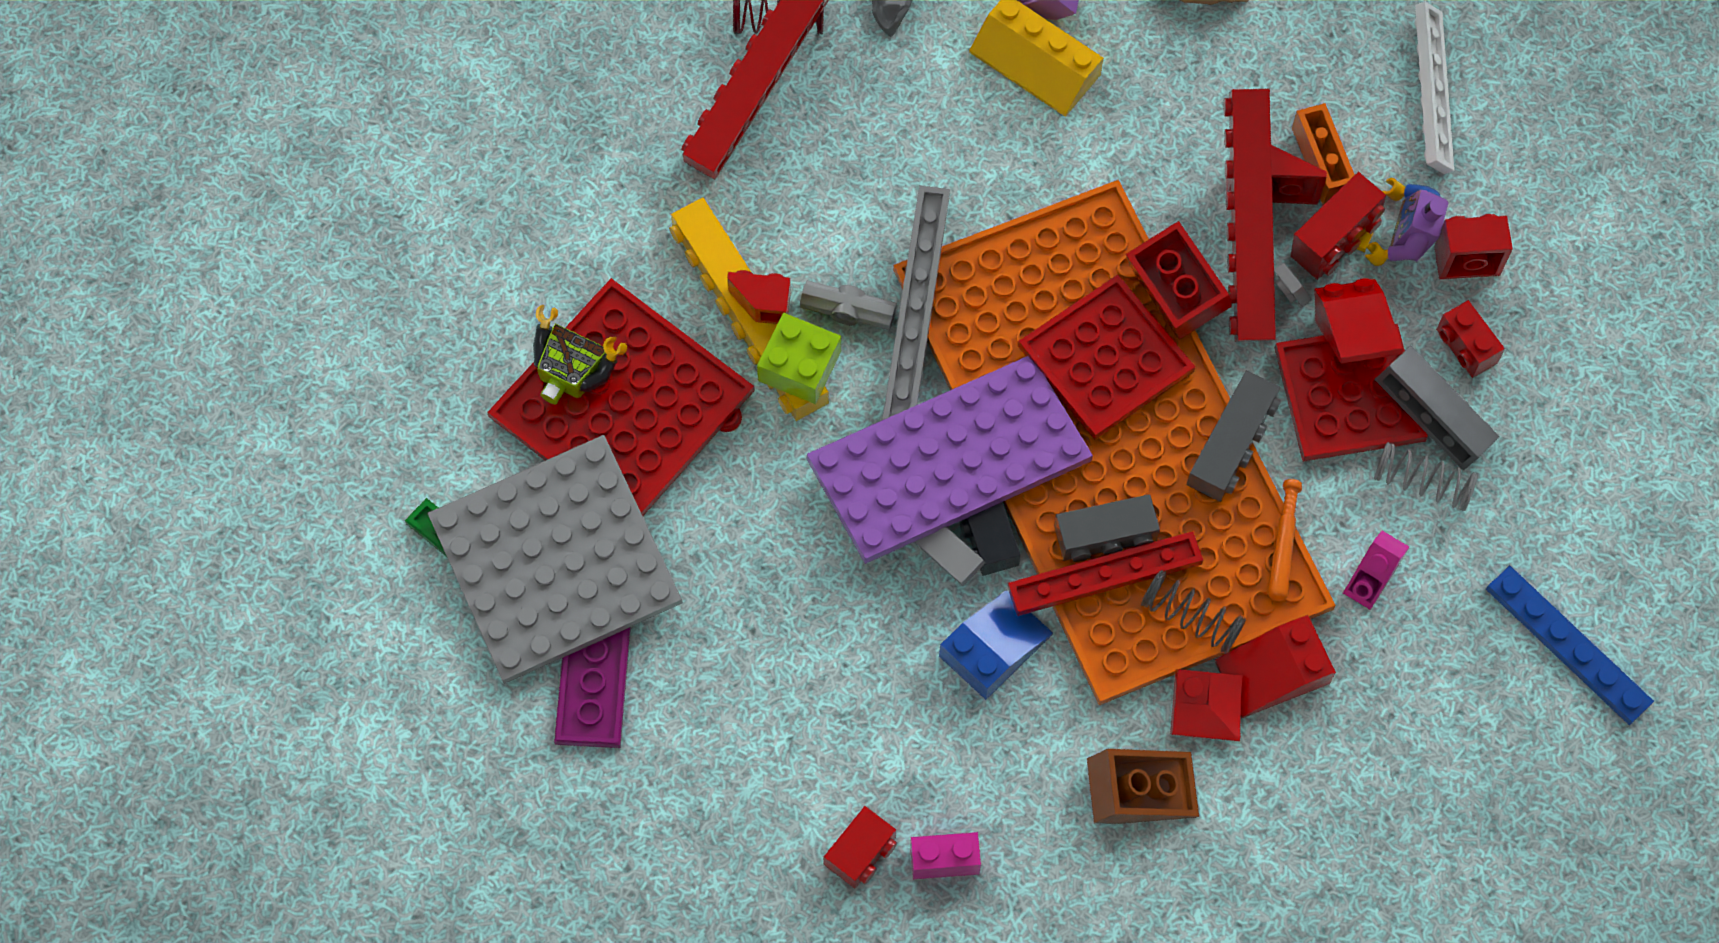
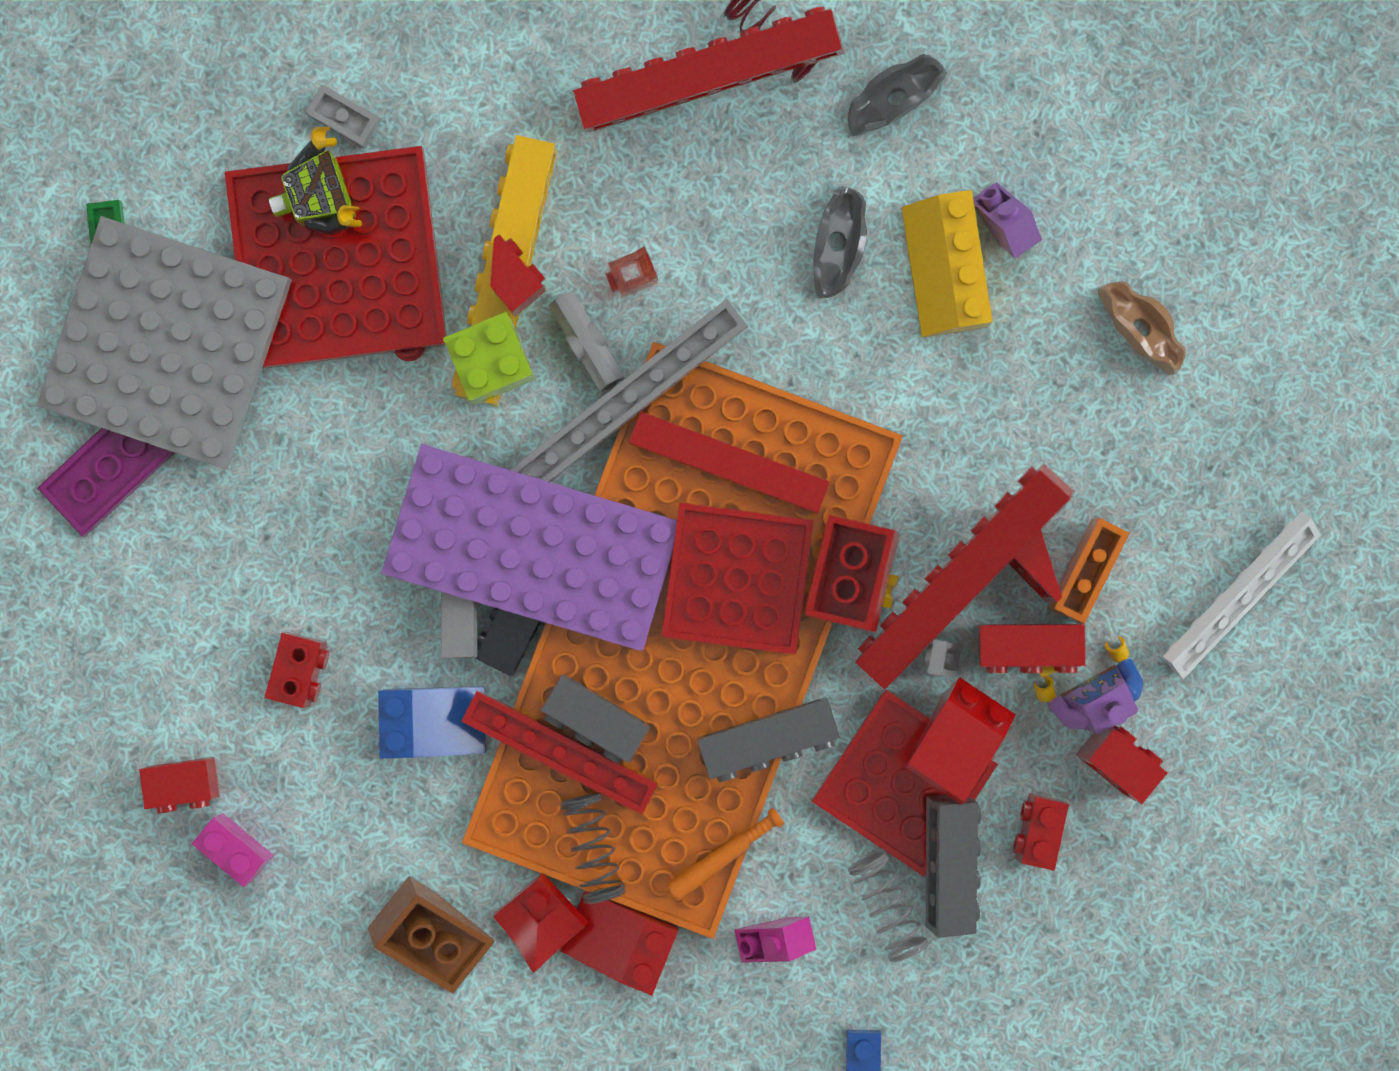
camera: 50 degrees right, 20 degrees up
(521, 309) = (343, 116): none -> light grey plate
(835, 235) = (632, 273): none -> clear red window
(866, 692) = (297, 670): none -> red brick
(939, 85) = (847, 217): none -> dark grey piece
(1023, 292) = (729, 462): none -> red tile

